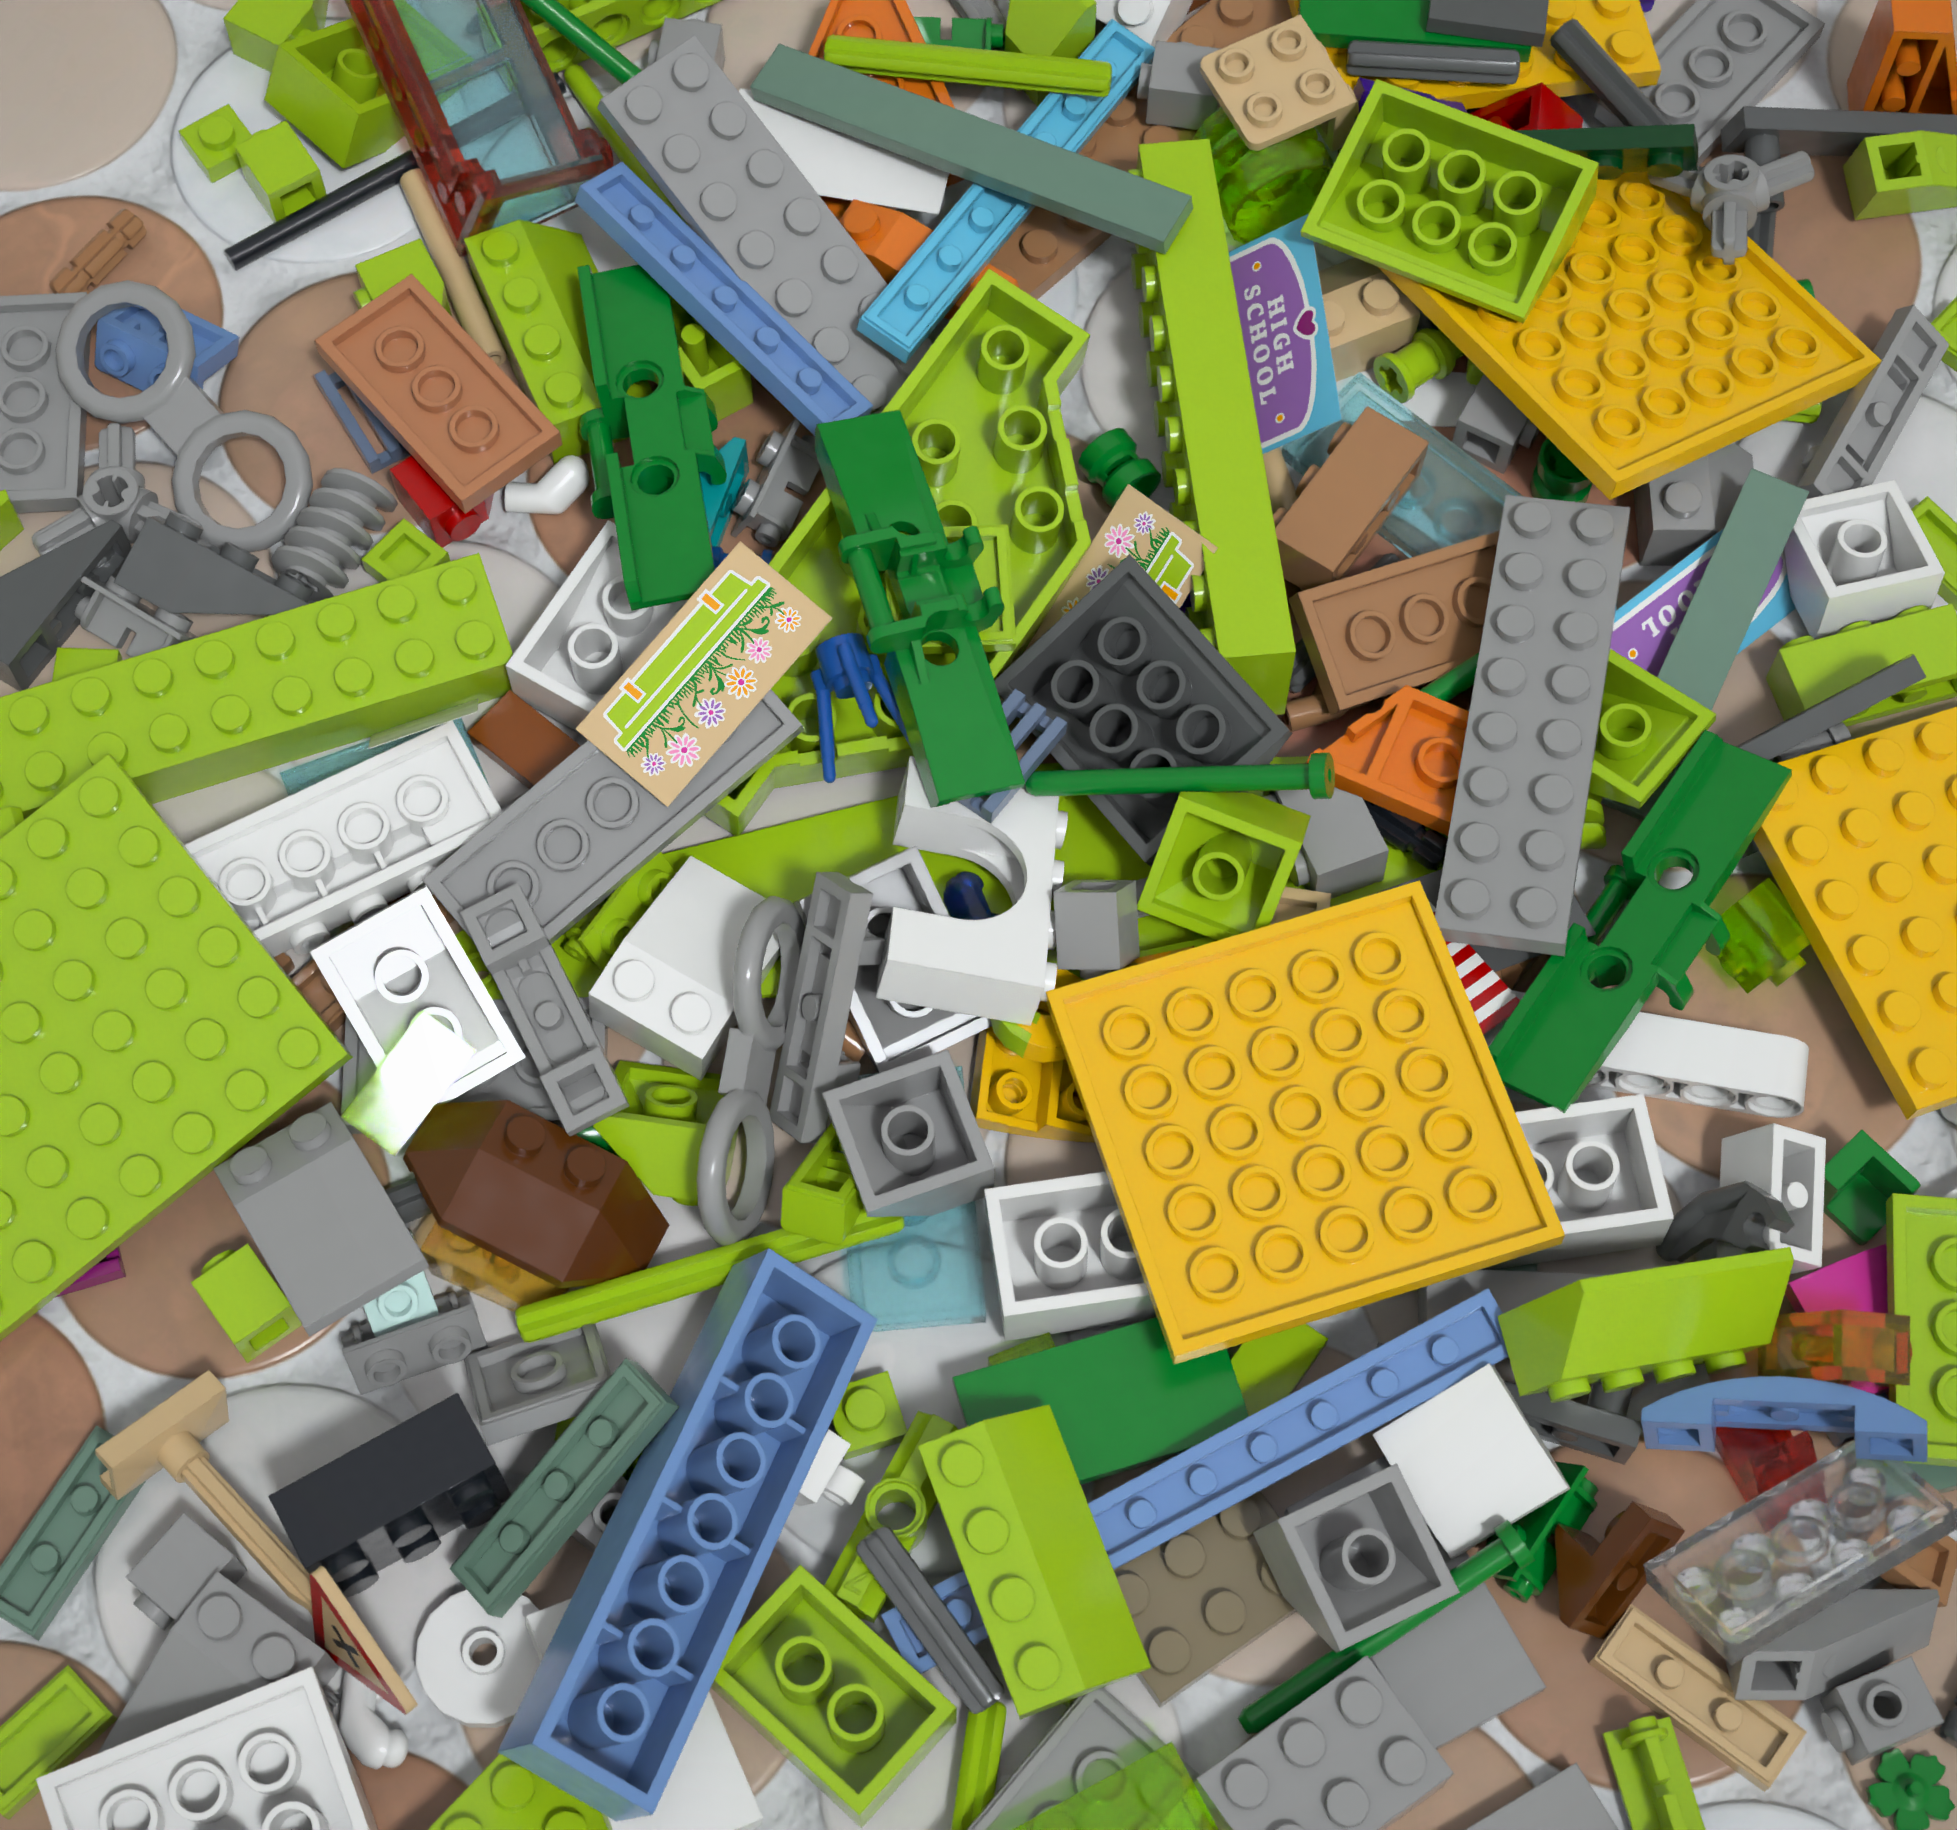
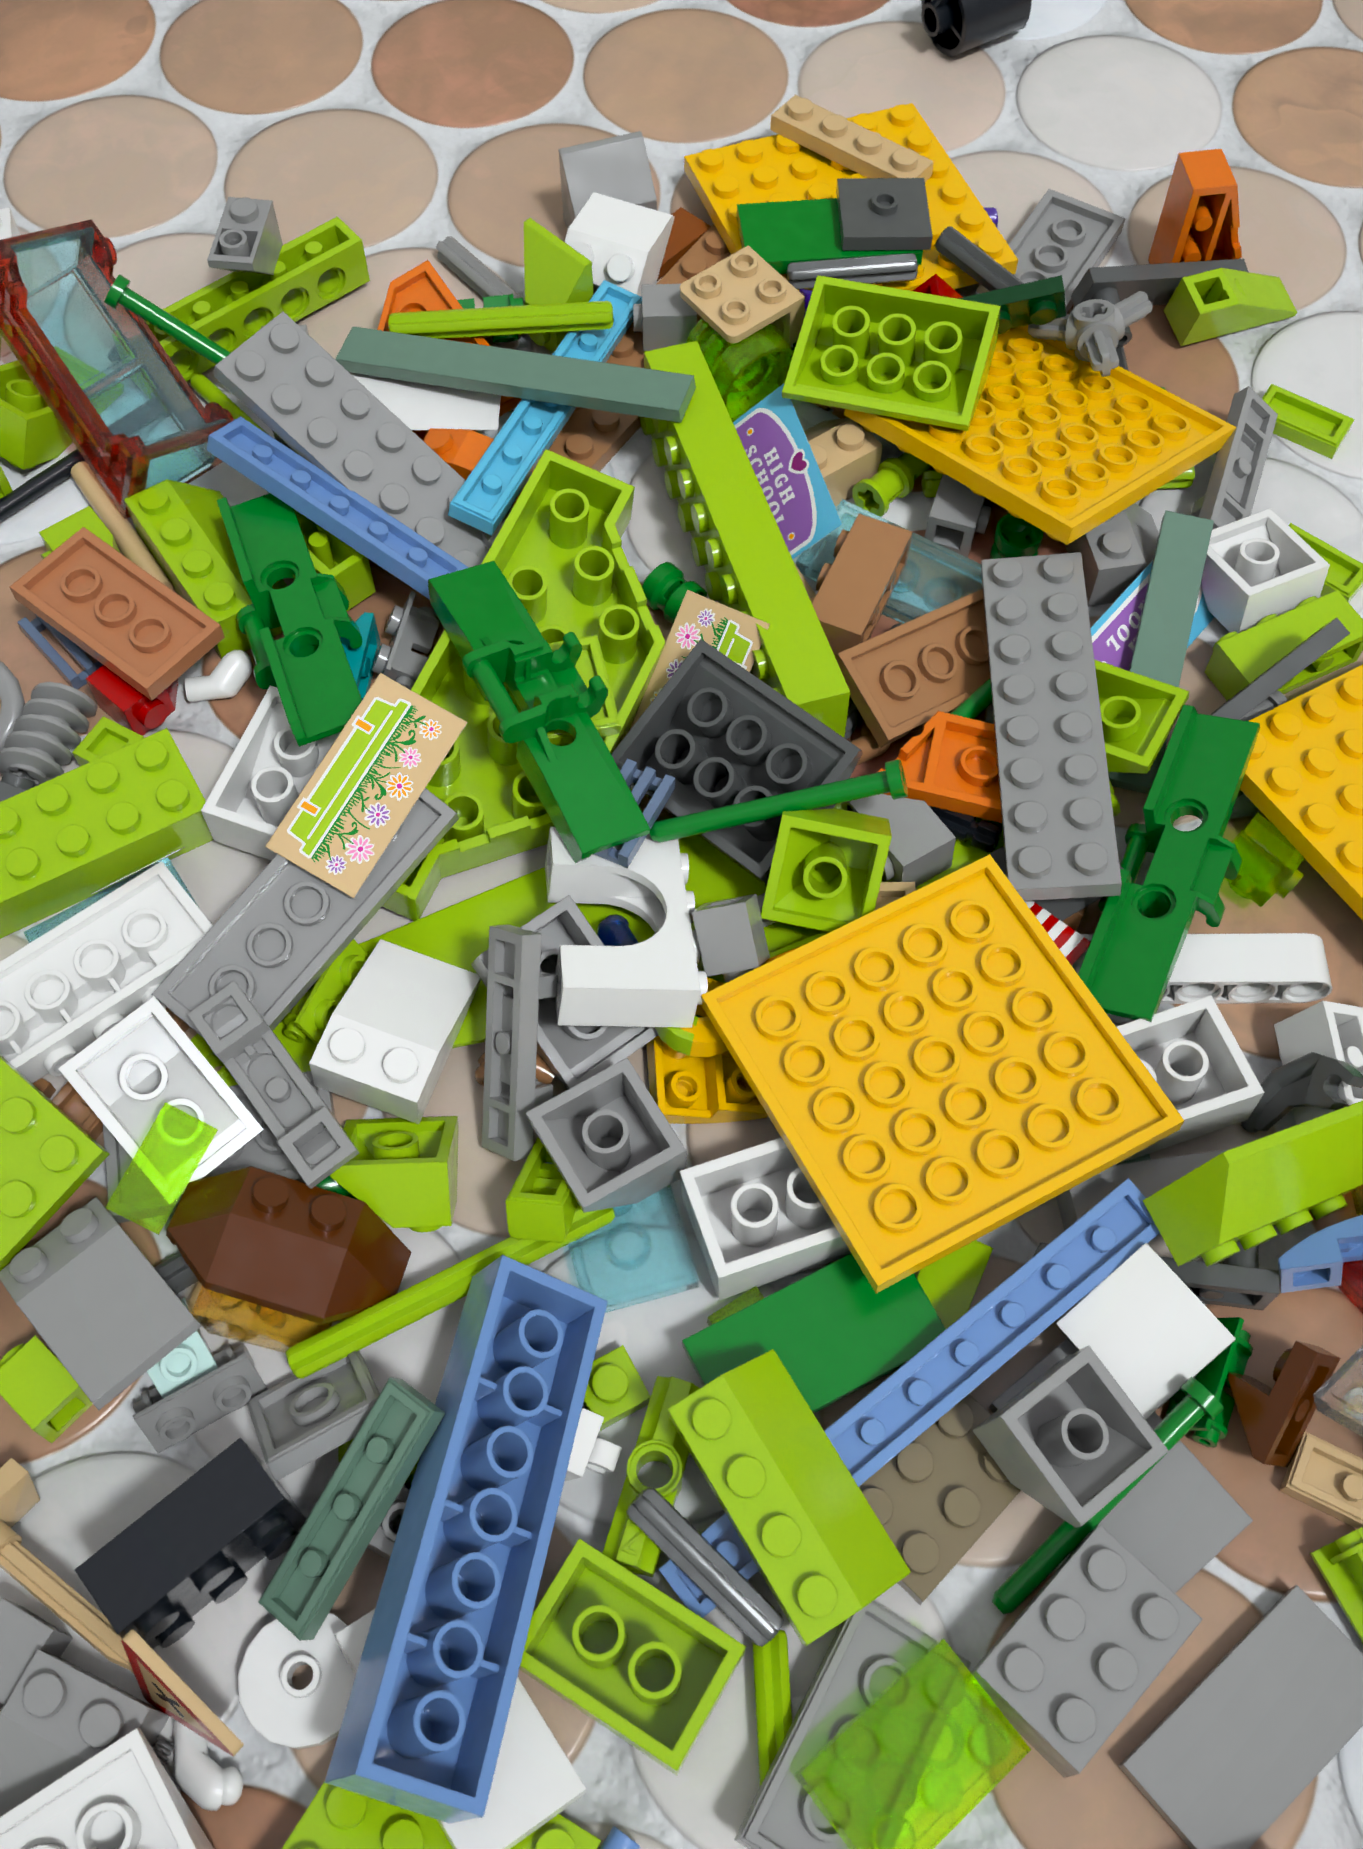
camera: 10 degrees left, 5 degrees down
(521, 740) = (220, 871): dark orange tile -> none
(748, 1075) = (459, 1112): light grey bar -> none
(850, 673) = (490, 768): blue plant -> none

